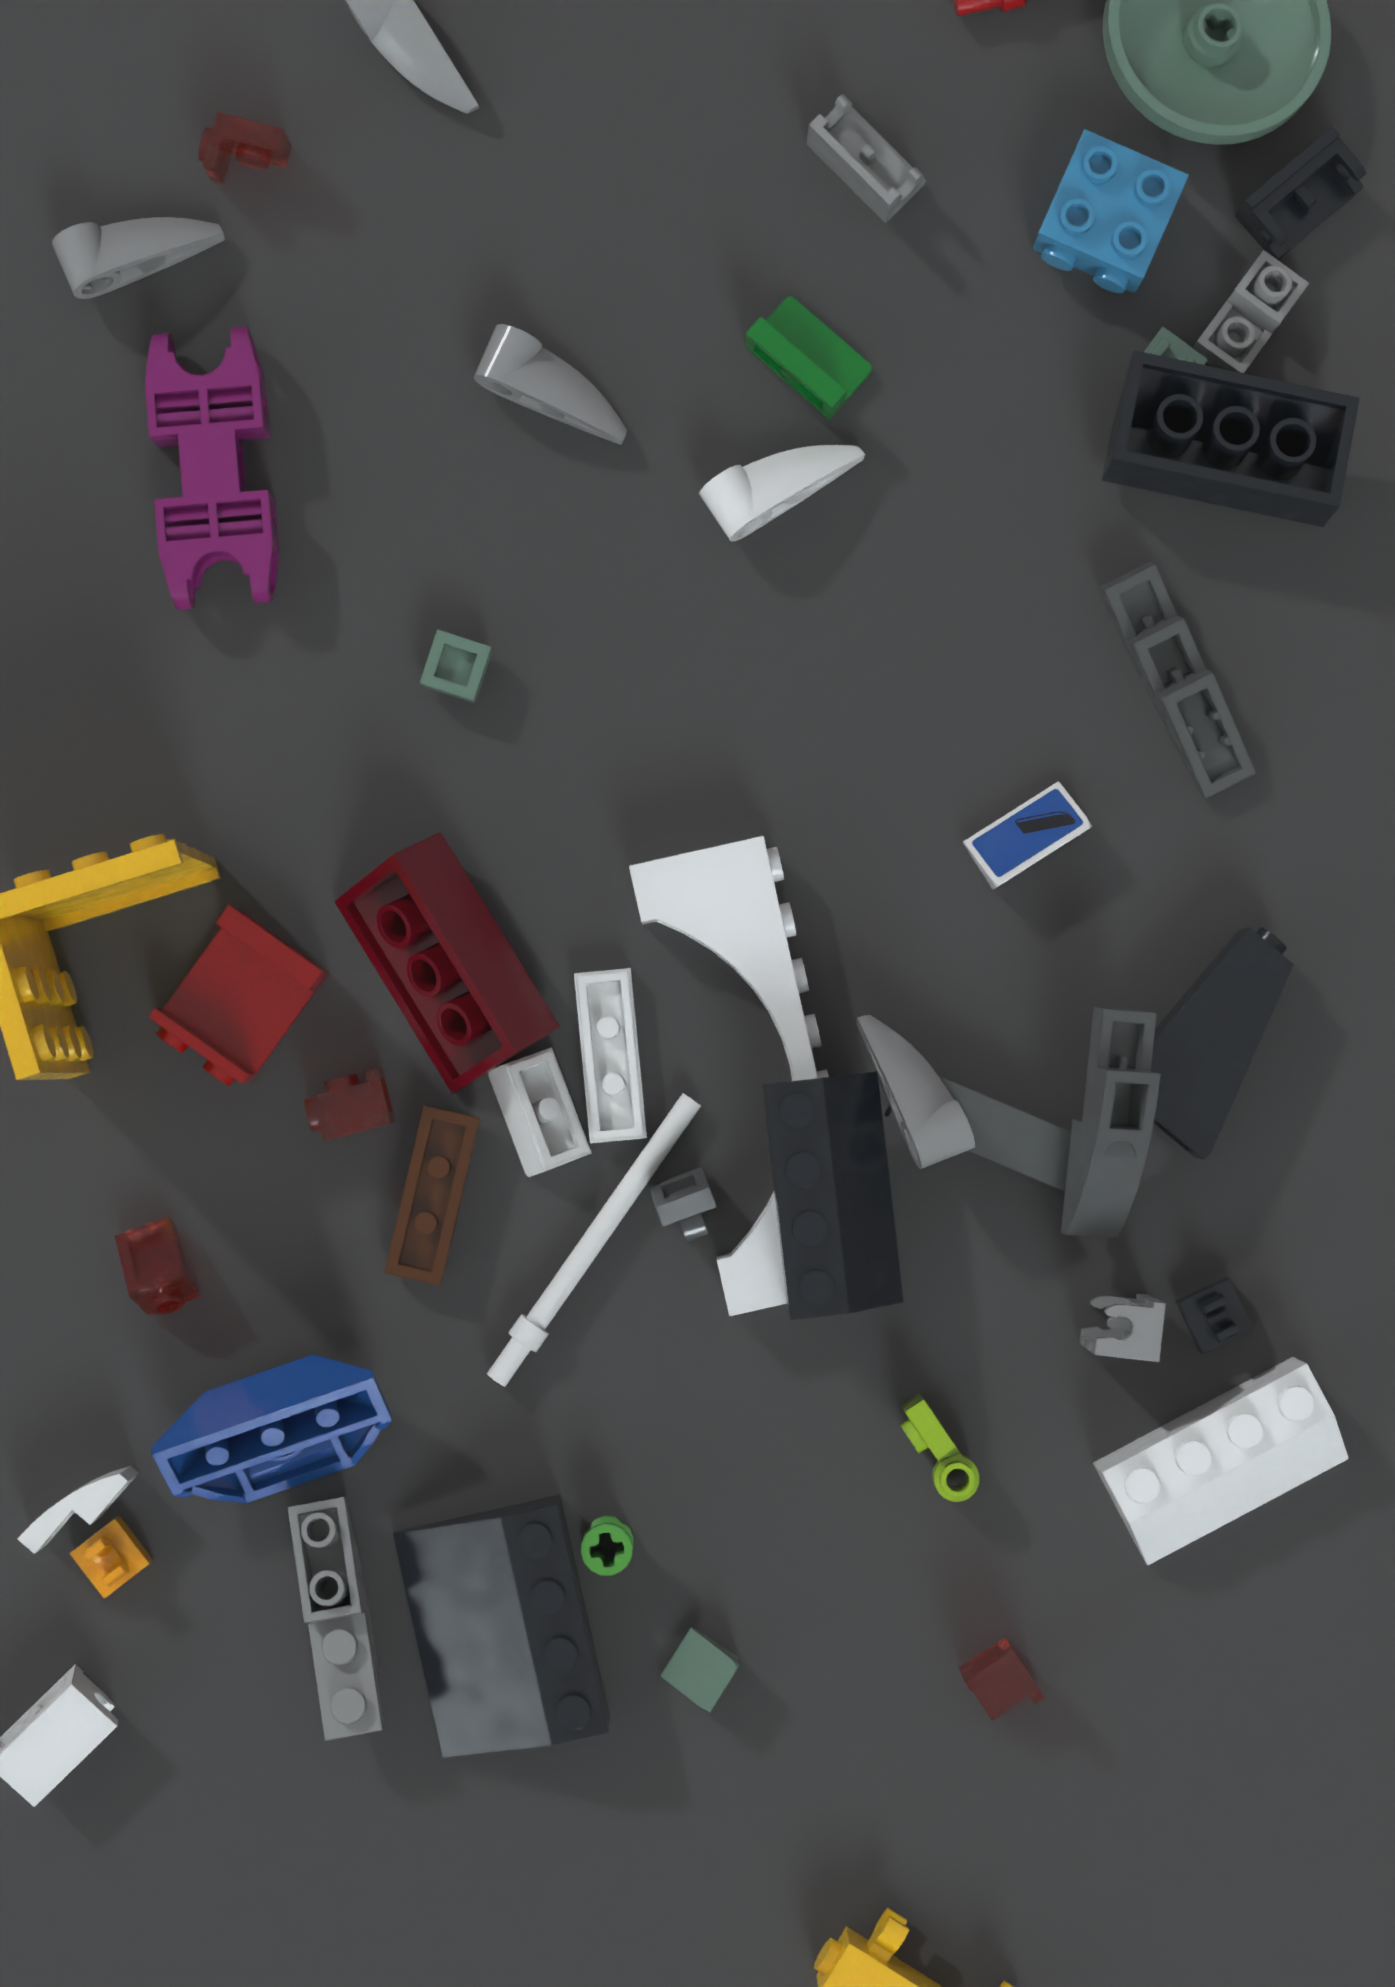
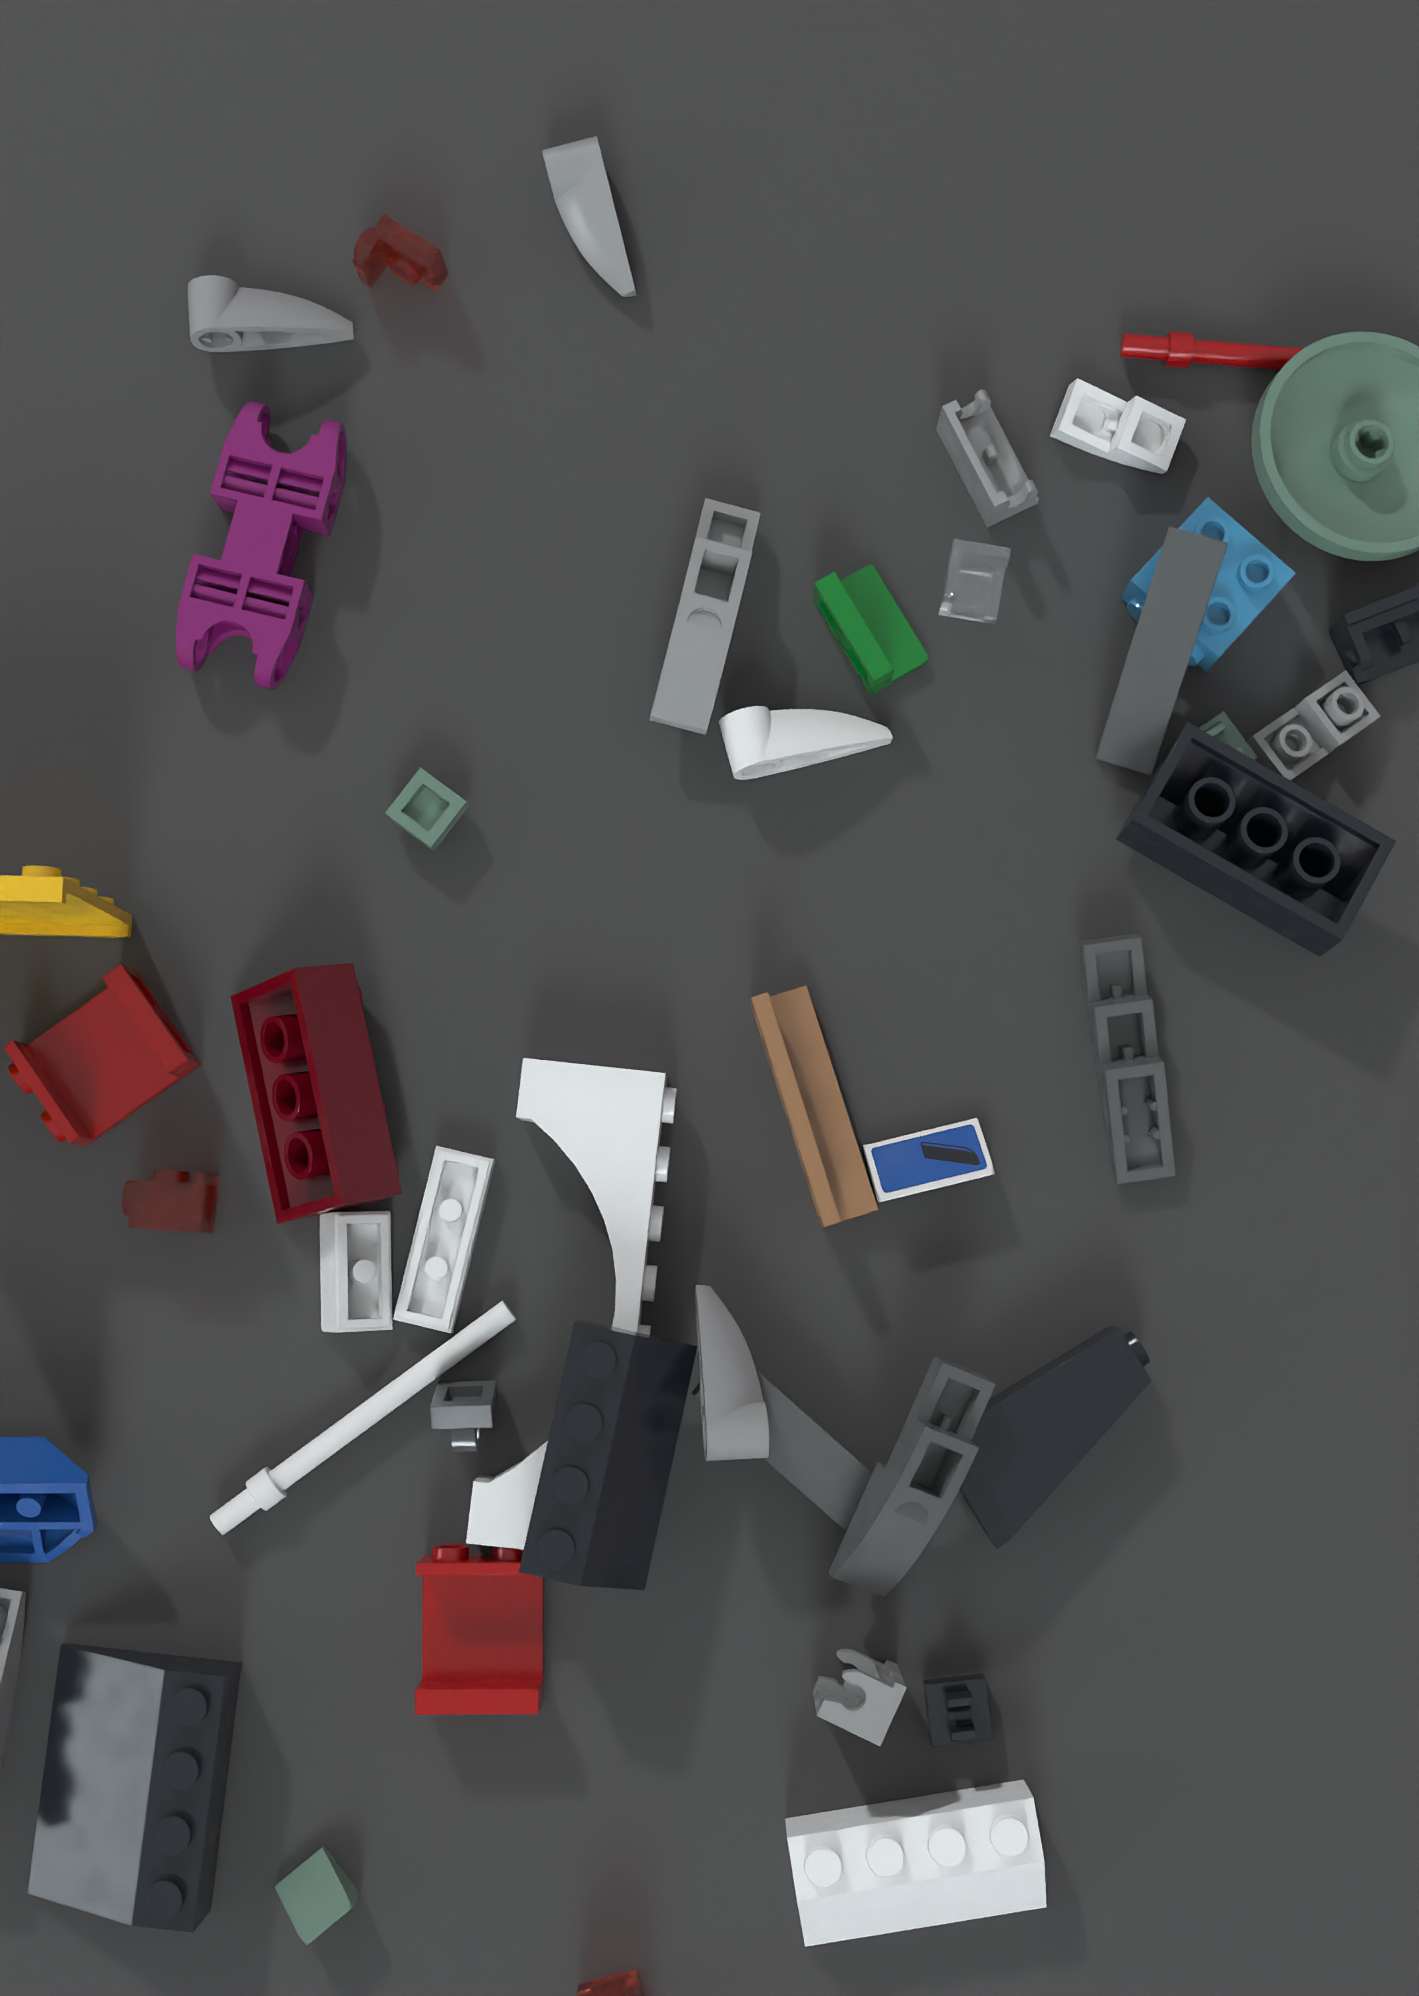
camera: 25 degrees right, 5 degrees down
(432, 1195) = (220, 1318): reddish brown plate -> none
(537, 379) = (597, 559): light grey piece -> none
(595, 1557) = (250, 1743): bright green bush -> none
(653, 397) = (705, 616): none -> light grey slope
(766, 1391) = (480, 1634): none -> red panel
(891, 281) = (973, 581): none -> clear panel
(905, 820) = (813, 1106): none -> medium nougat fence
(926, 1431) = (626, 1729): lime plate -> none
(977, 89) = (1118, 430): none -> white slope
(1088, 290) = (1161, 649): none -> dark grey slope

